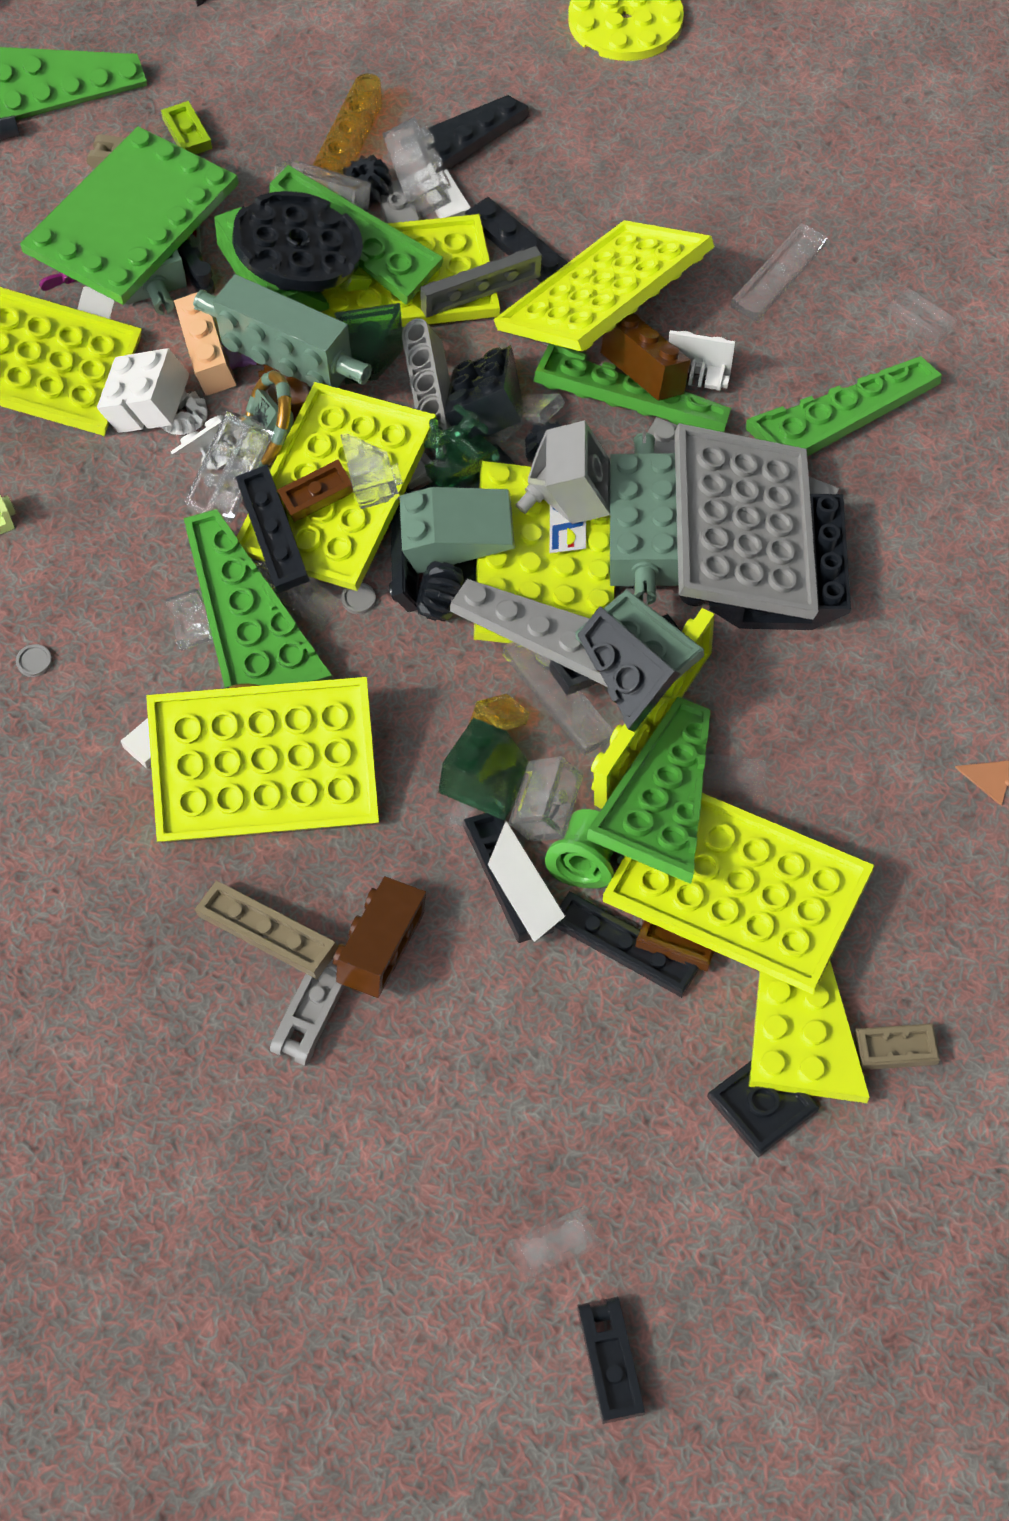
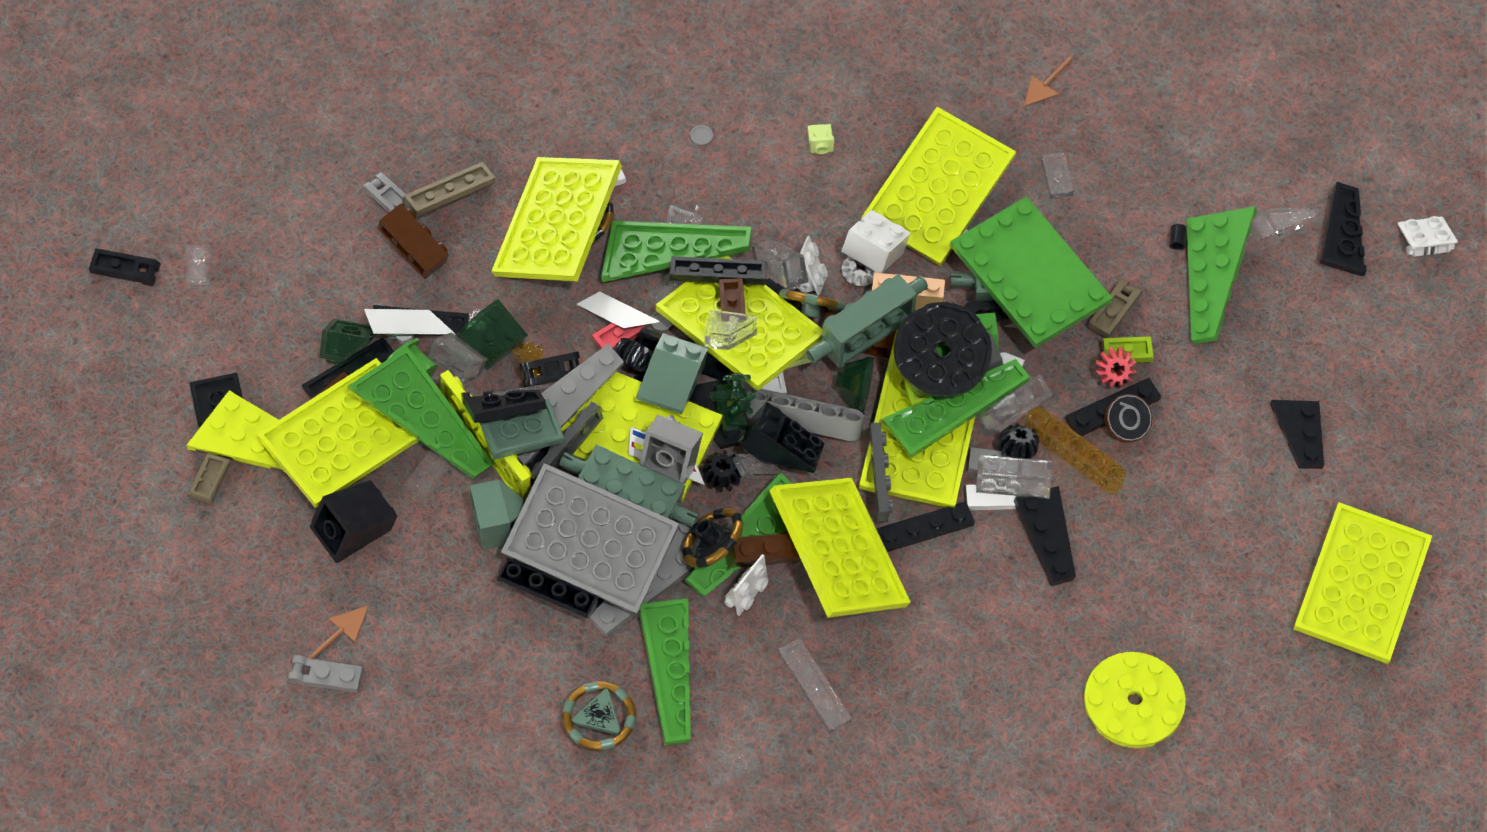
camera: 110 degrees right, 0 degrees up
(220, 123) = (1108, 373): none -> coral gear
(269, 125) = (1092, 416): none -> black plate
(282, 98) = (1128, 418): none -> black tile
(376, 642) = (615, 311): none -> white sticker
(406, 632) = (613, 333): none -> coral plate
(505, 681) = (550, 368): none -> black plate
(574, 592) = (573, 437): none -> dark grey plate
(582, 959) = (343, 339): none -> clear green slope
(668, 394) = (712, 537): none -> black piece
(760, 650) = (495, 512): none -> sand green piece
(860, 818) = (352, 519): none -> black slope
(952, 448) = (599, 715): none -> piece

